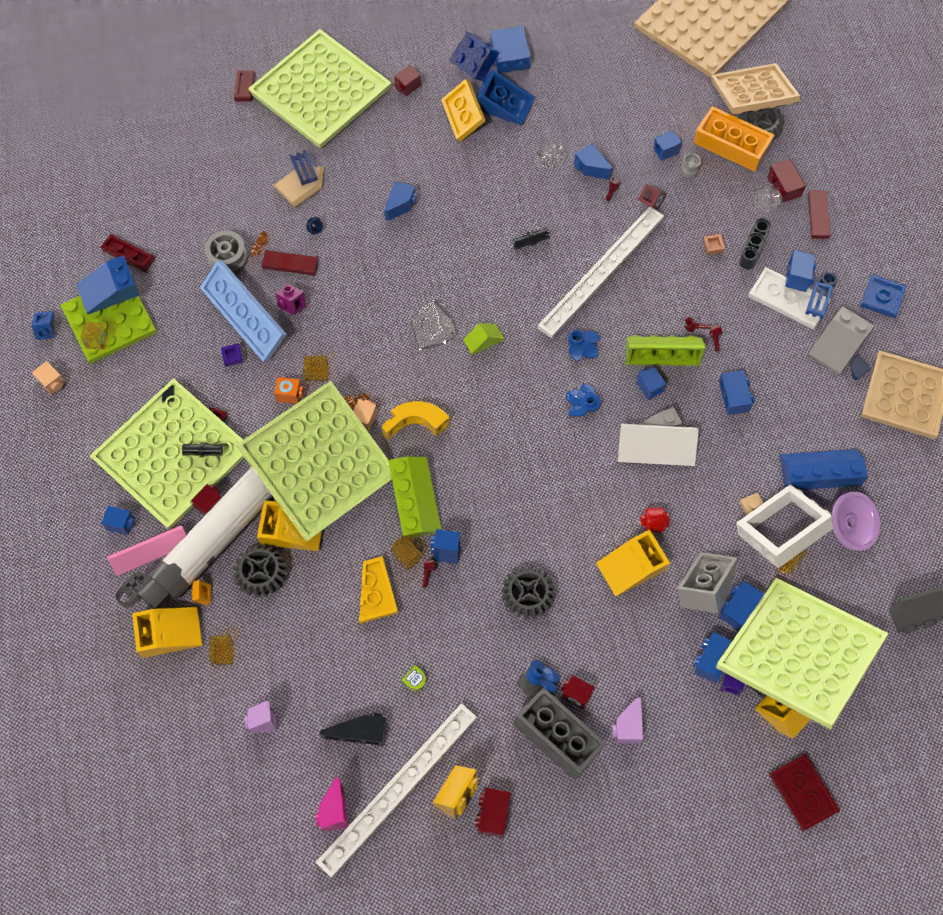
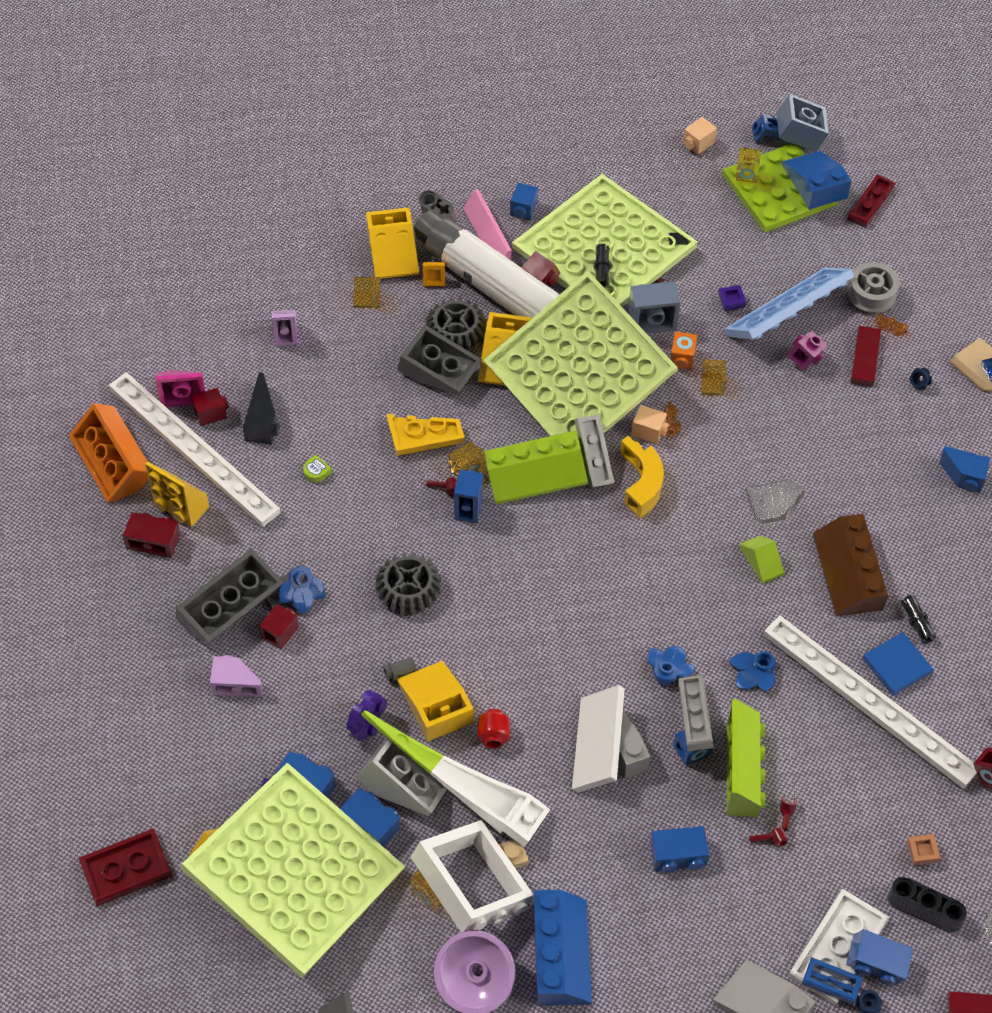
camera: 90 degrees right, 10 degrees down
(46, 294) = (802, 123): none -> sand blue brick
(248, 408) = (655, 306): none -> sand blue brick
(304, 581) = (438, 361): none -> dark grey slope
(352, 778) = (209, 406): none -> dark red brick
(386, 451) = (594, 451): none -> light grey plate
(407, 864) = (110, 452): none -> orange slope
(490, 278) = (850, 566): none -> reddish brown slope
(568, 253) = (897, 663): none -> blue tile
(607, 595) = (399, 669): none -> dark grey pin
(631, 378) = (695, 713): none -> light grey tile
(660, 611) = (358, 725): none -> dark purple plate
(719, 513) = (495, 802): none -> white plate

